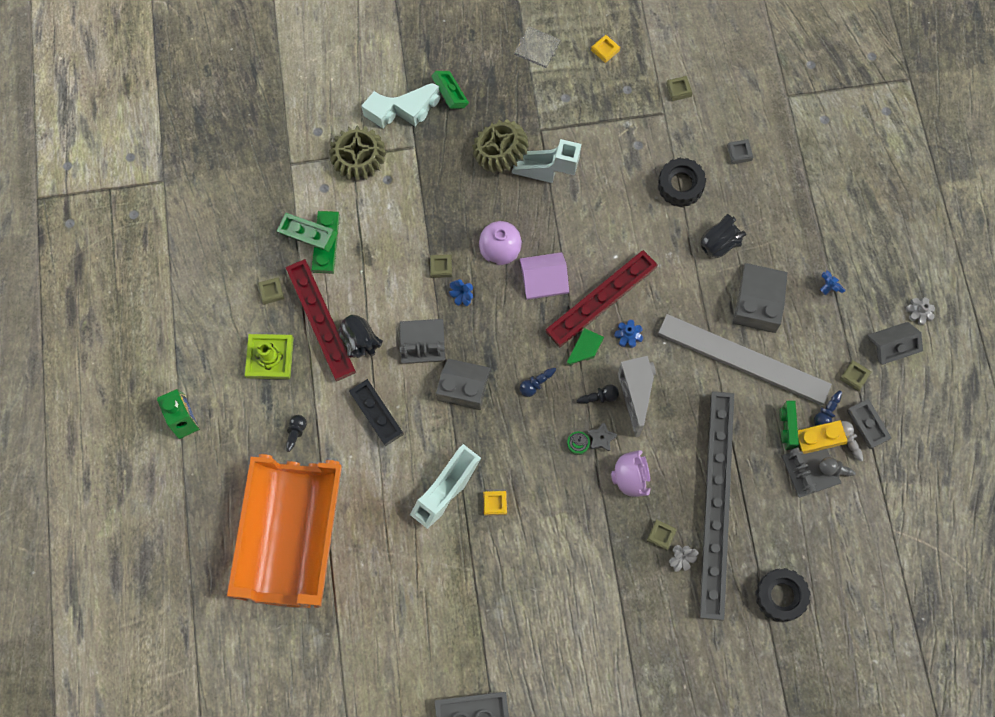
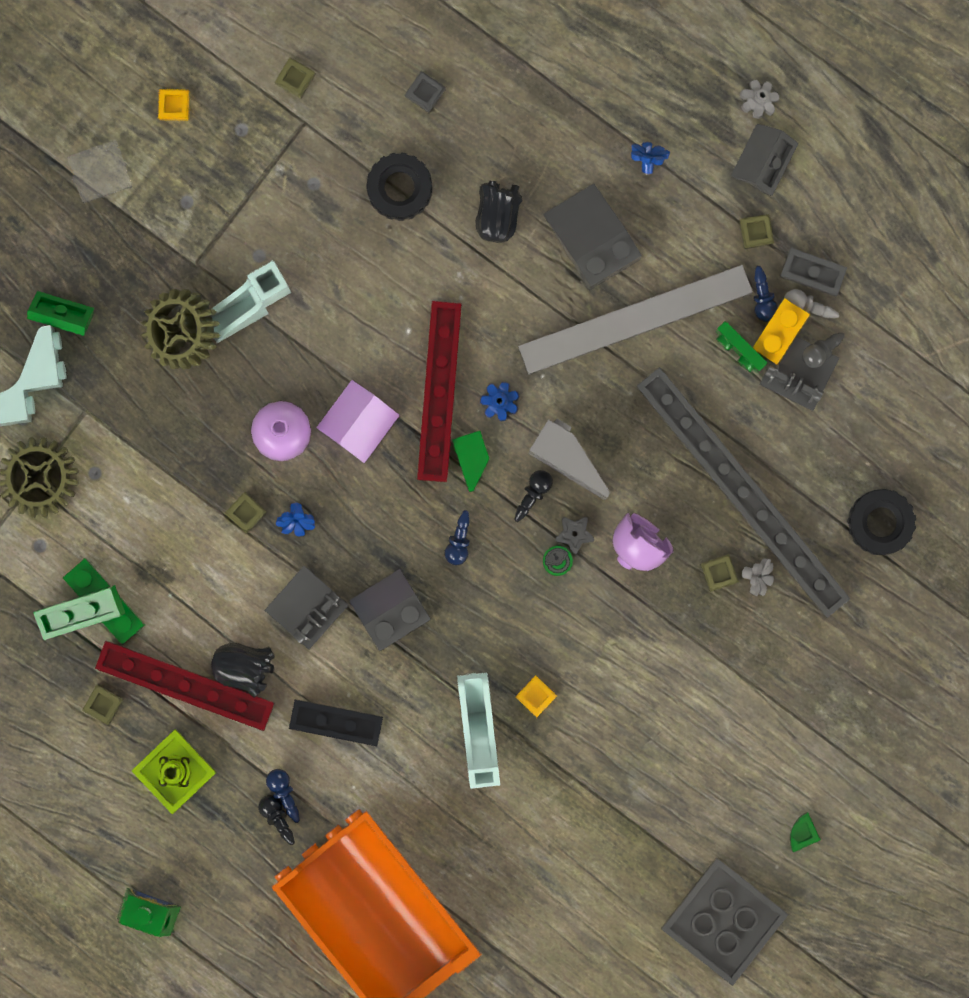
camera: 45 degrees left, 15 degrees up
(314, 414) = (278, 782): none -> dark blue bar

